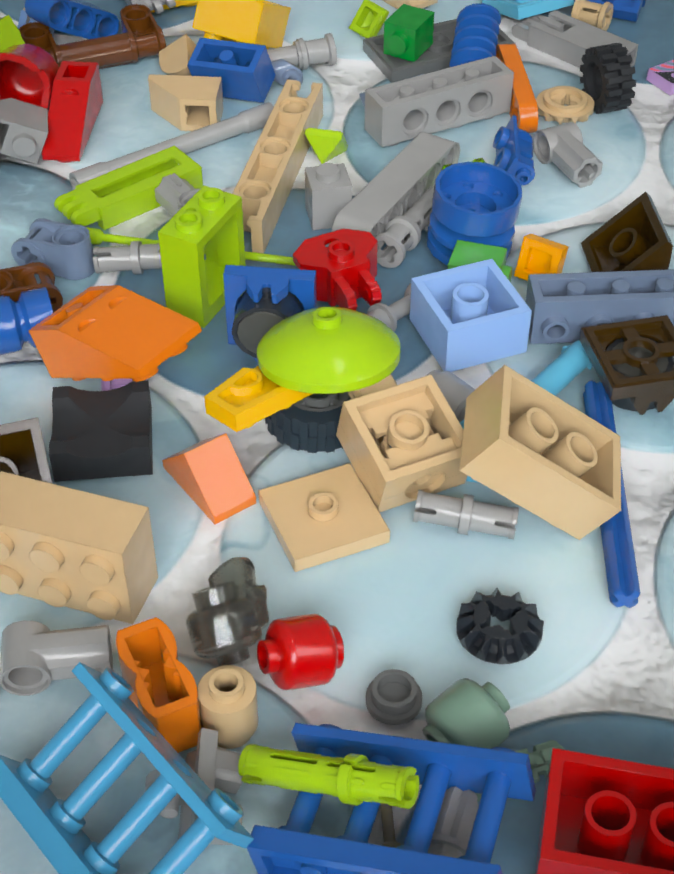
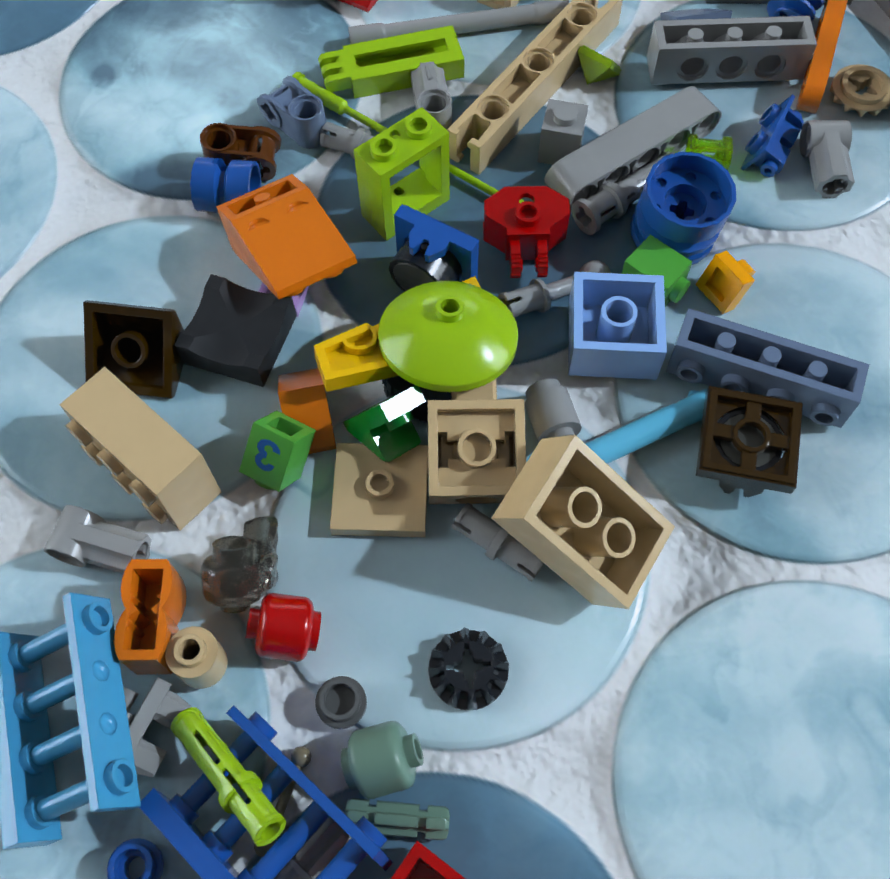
camera: 25 degrees right, 20 degrees up
(206, 510) = (276, 451): none -> bright green brick
(300, 454) = (388, 425): none -> green slope
(616, 532) = (624, 621): blue axle -> none
(630, 240) = (819, 300): dark brown slope -> none

